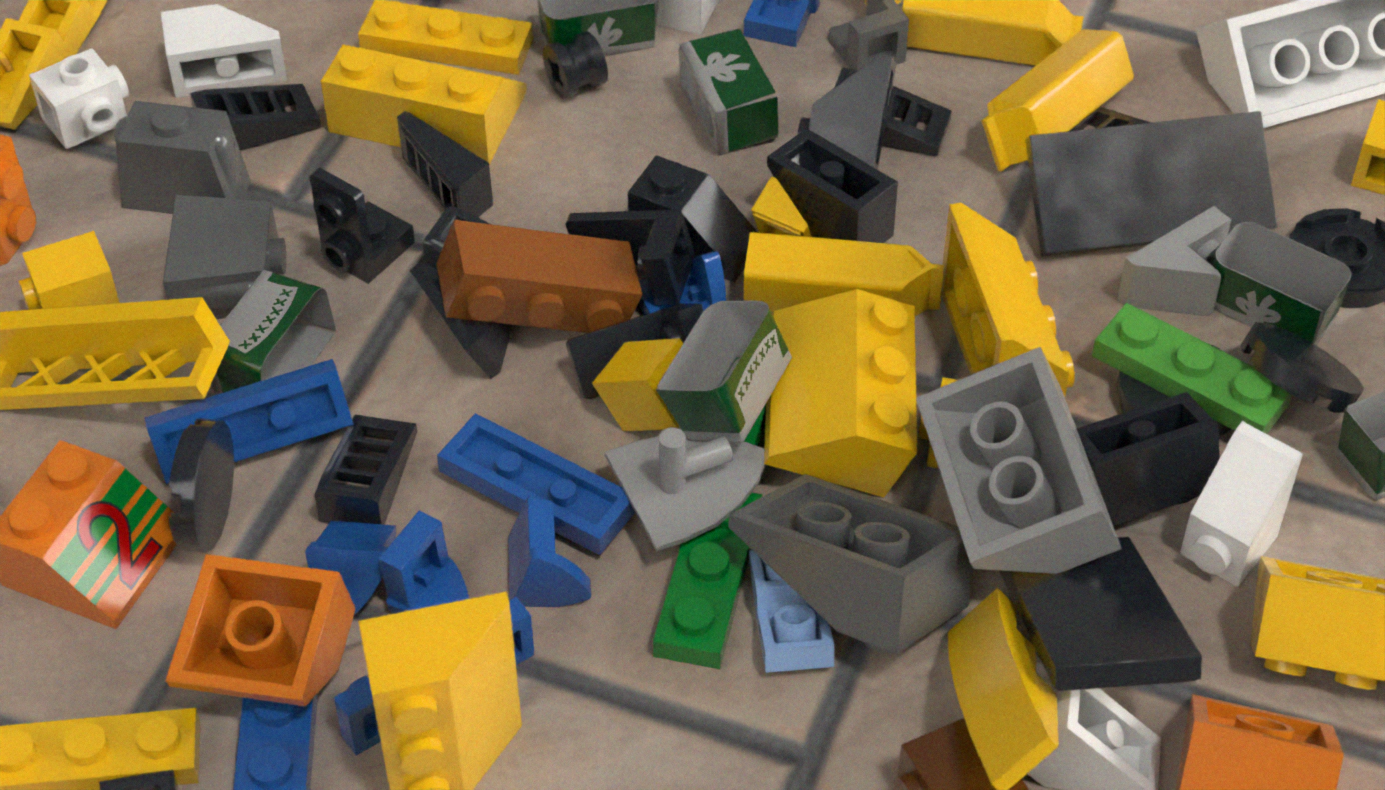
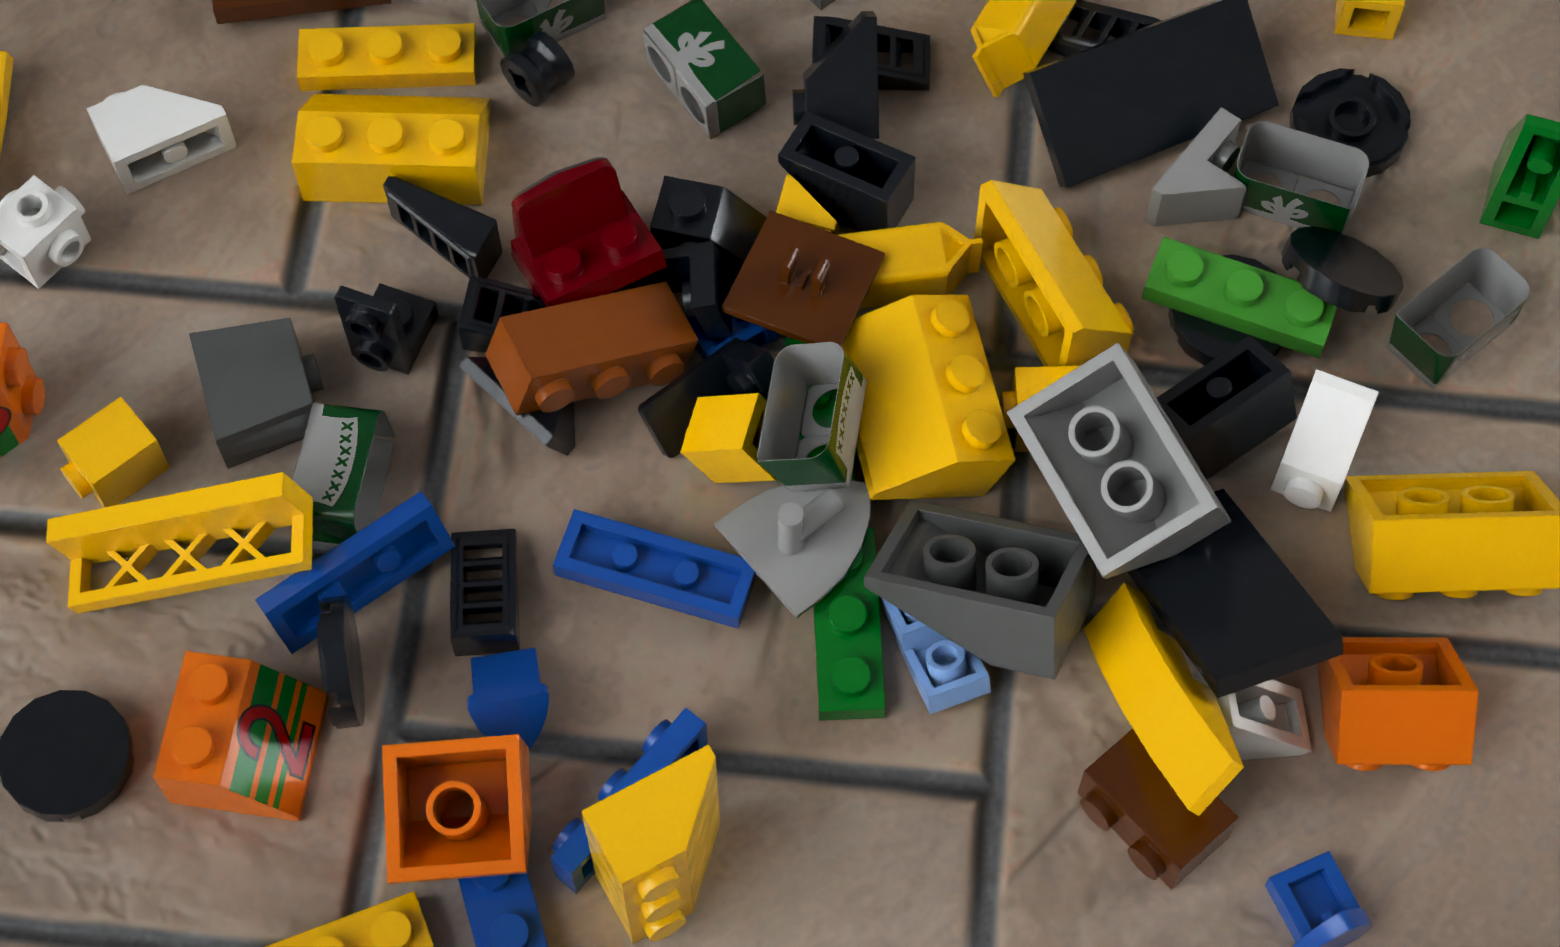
camera: 15 degrees left, 15 degrees up
(174, 153) = (173, 286): dark grey torso -> none
(249, 107) = (215, 228): black slope -> none
(419, 568) = (585, 699): blue tile -> none
(535, 570) = (682, 655): blue tile -> none
(558, 173) = (580, 235): none -> dark red piece
(758, 260) = (803, 281): none -> reddish brown piece

